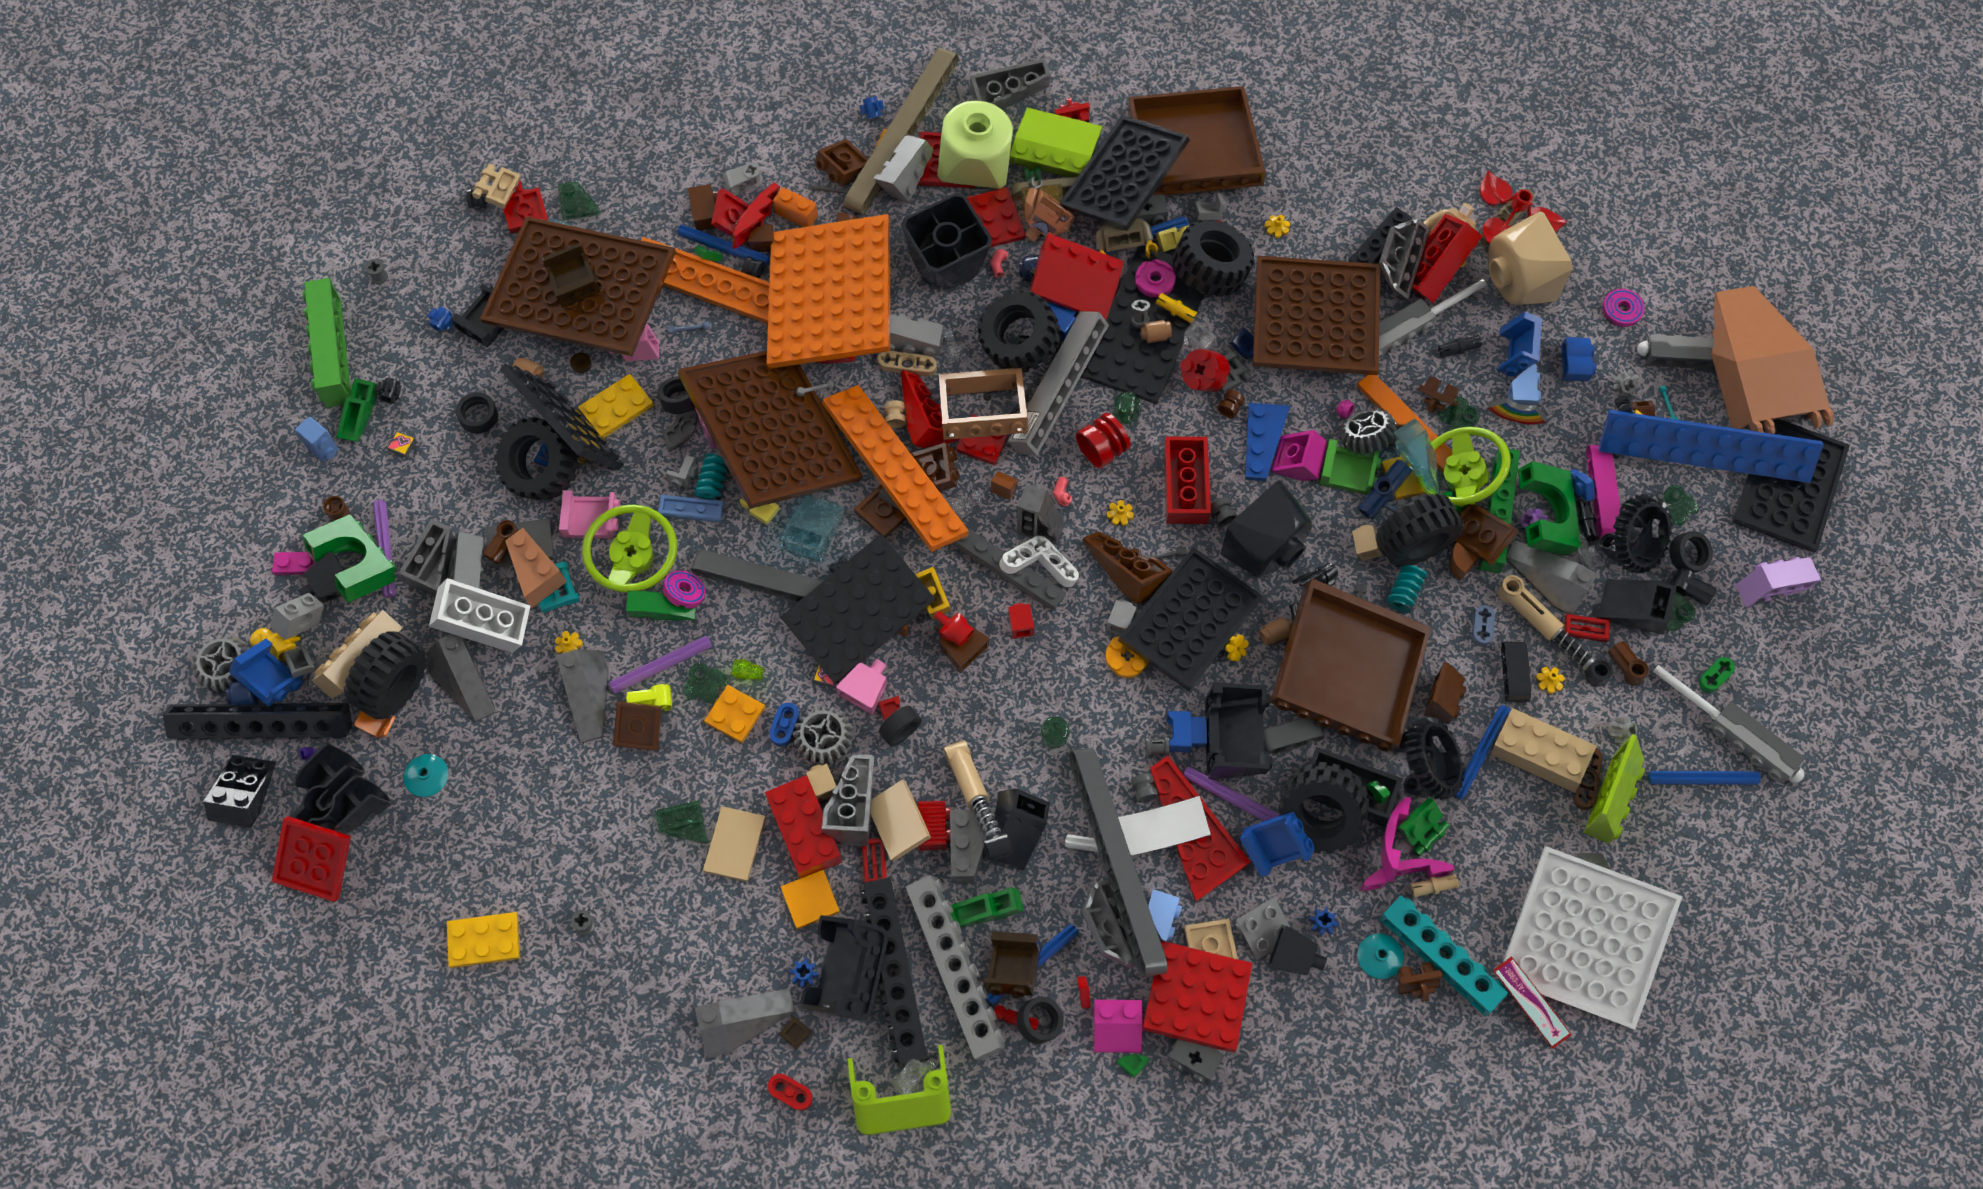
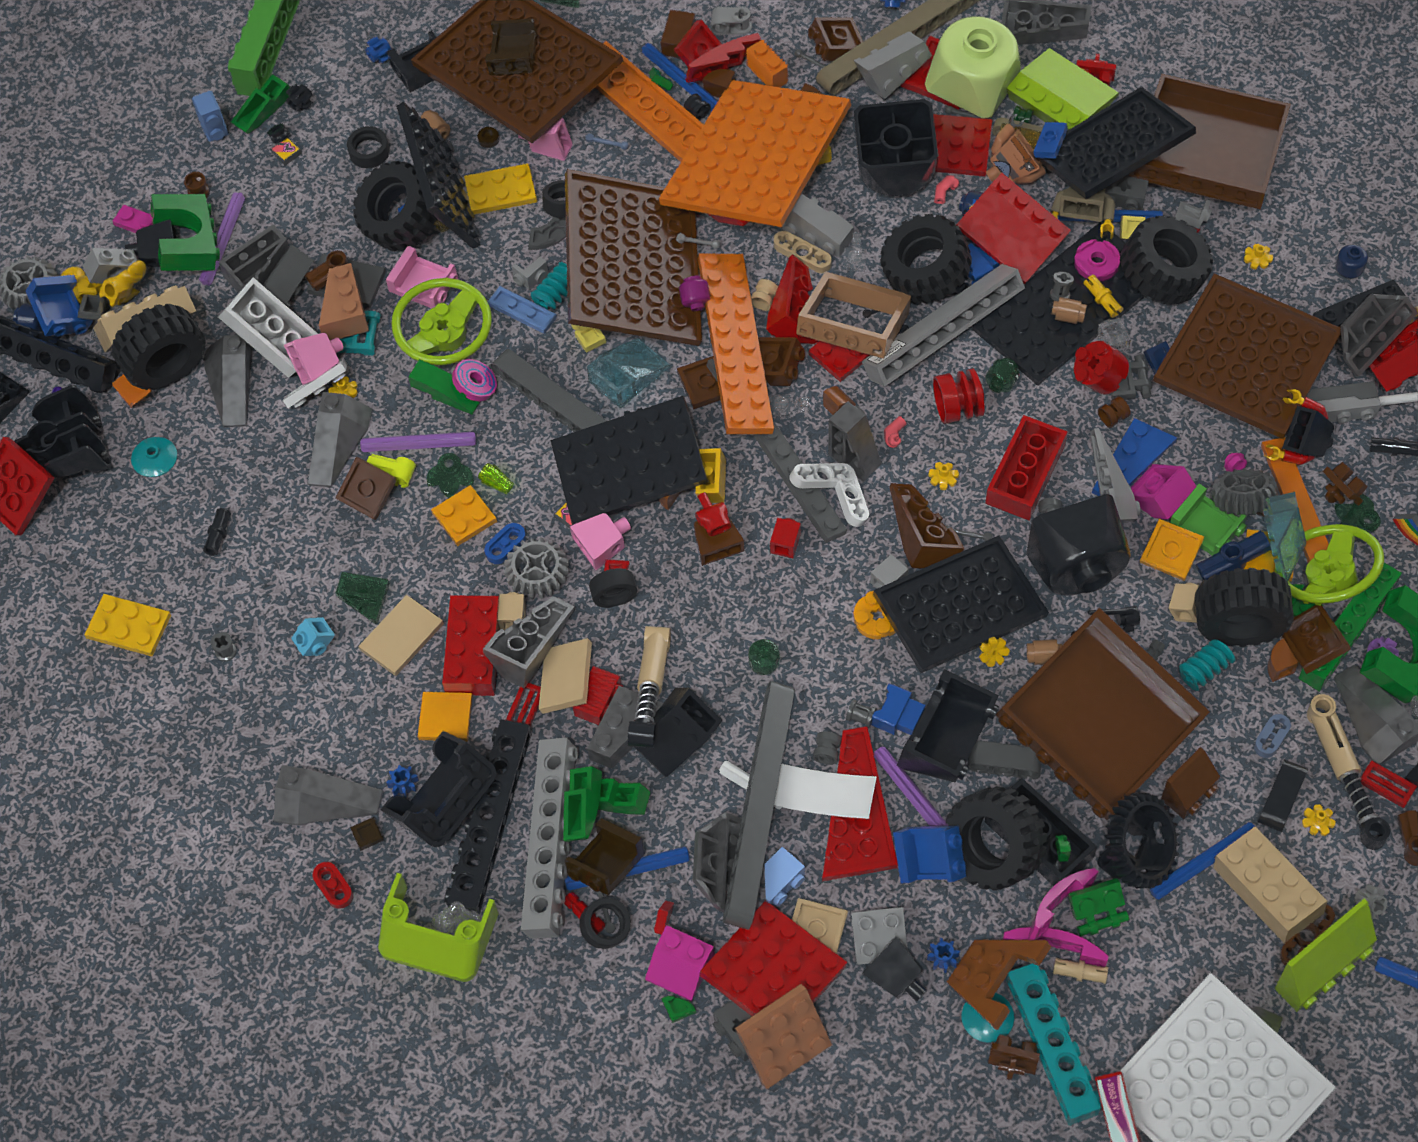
camera: 30 degrees right, 5 degrees down
(316, 631) = (120, 287): none -> yellow animal
(386, 430) = (278, 133): none -> black bush
(521, 820) = (217, 531): none -> black pin
(532, 626) = (313, 355): none -> bright pink torso
(545, 650) = (298, 395): none -> white wing
(660, 880) = (313, 636): none -> medium azure brick
(838, 436) = (694, 293): none -> magenta head
(971, 927) = (581, 803): none -> green slope
(1071, 189) = (1050, 140): none -> blue plate
(1237, 1050) = (783, 1036): none -> nougat plate
(1259, 462) = (1112, 480): none -> light grey wedge
(1332, 502) = (1172, 549): none -> light orange tile
(1354, 203) = (1351, 261): none -> dark blue head
(1363, 920) = (985, 969): none -> dark orange wing
(1393, 363) = (1308, 433): none -> black torso

